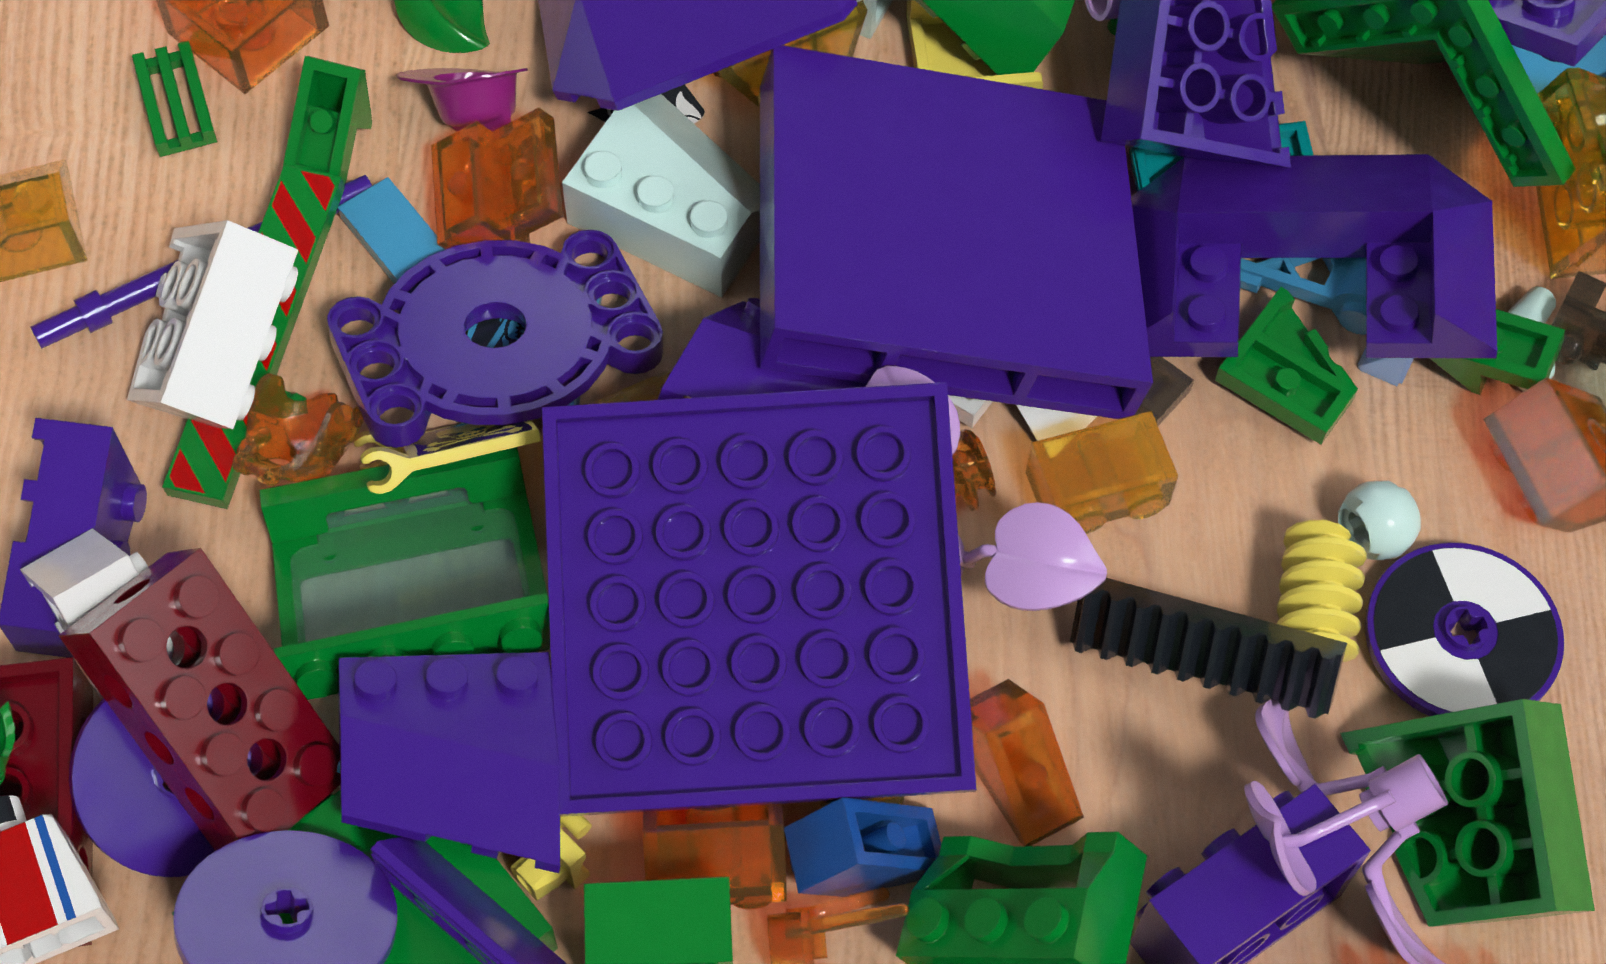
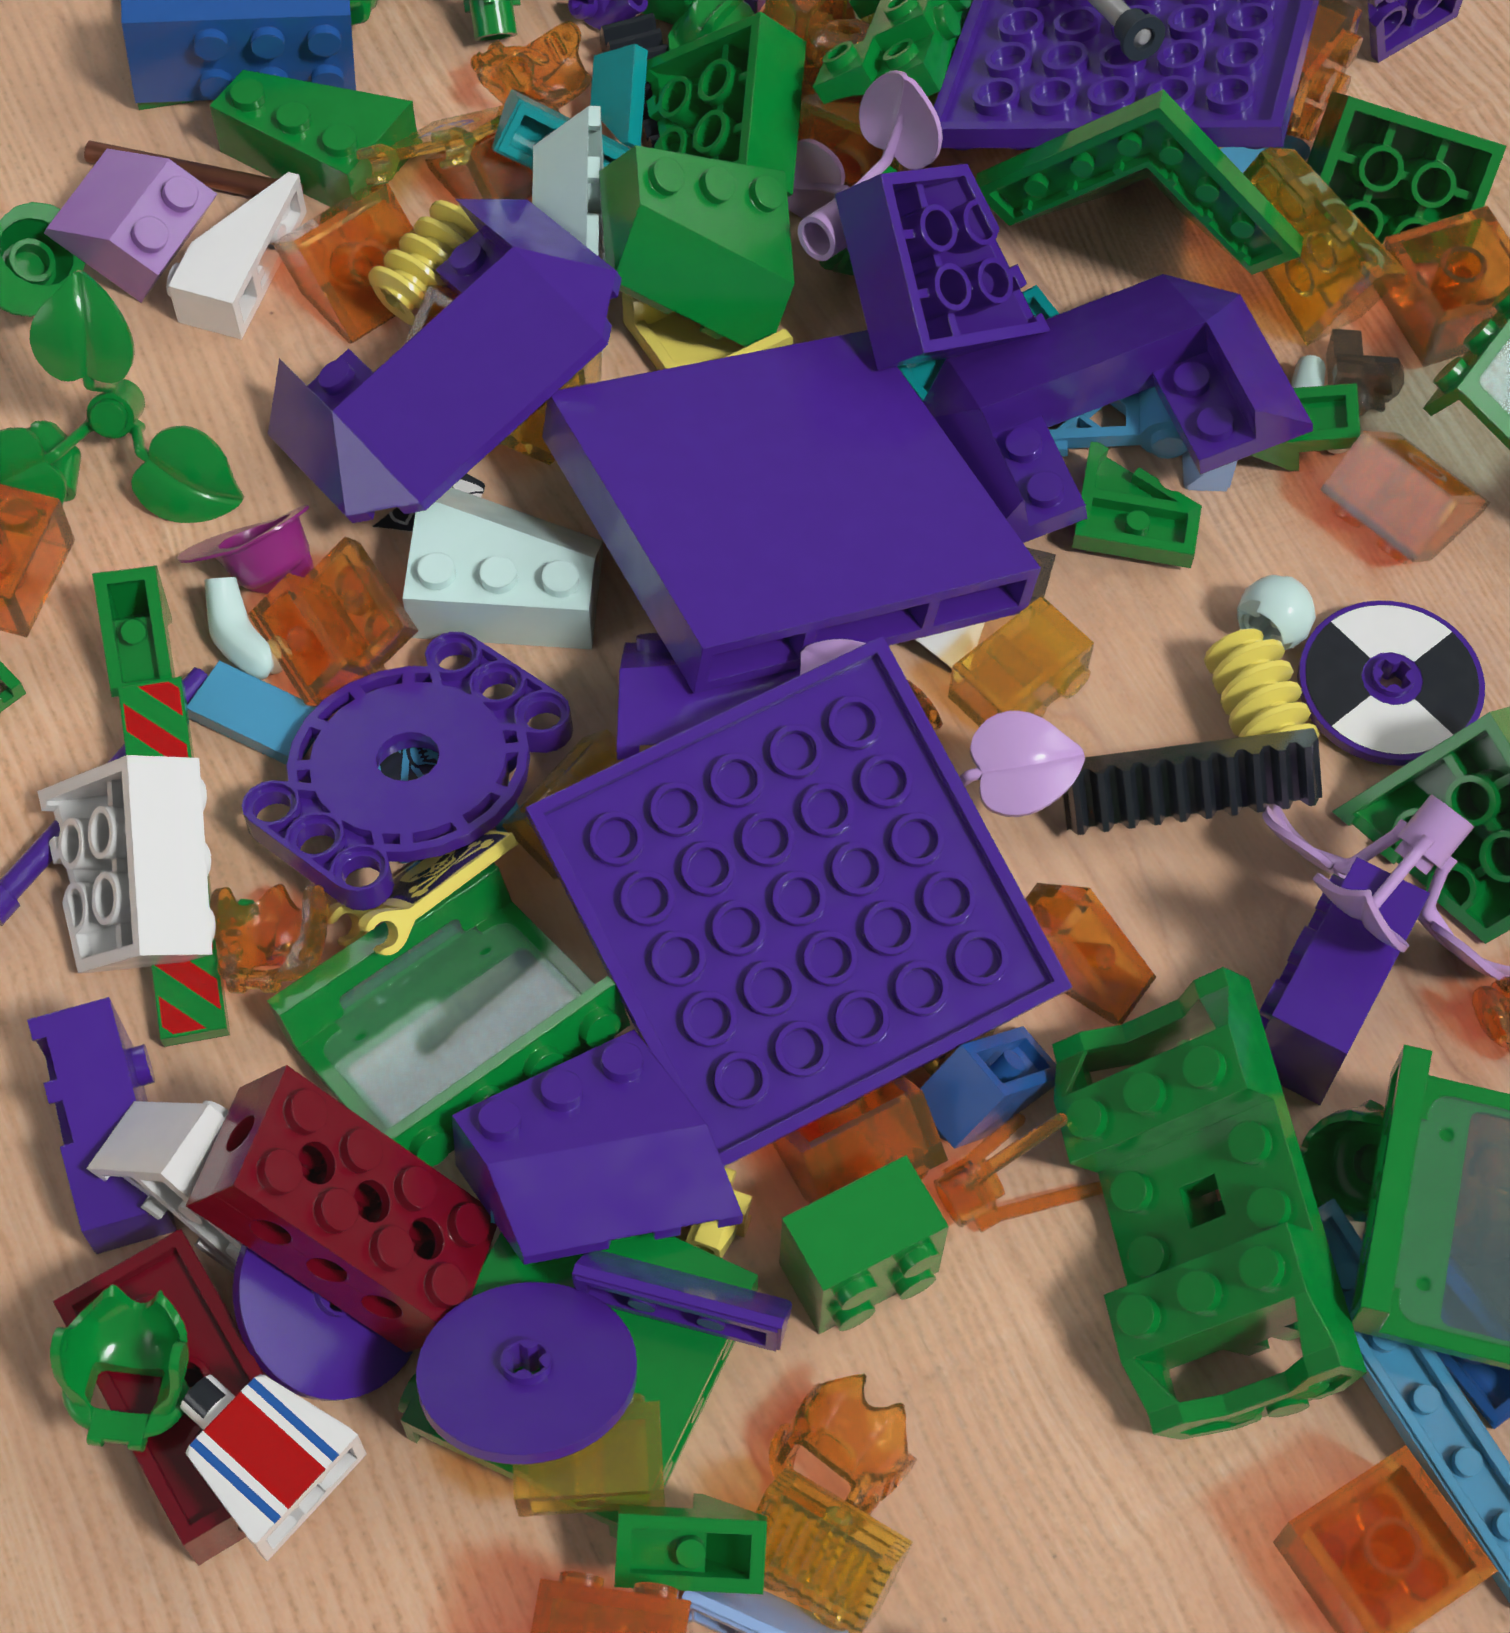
camera: 25 degrees left, 0 degrees up
(413, 154) = (234, 632): none -> light aqua arm

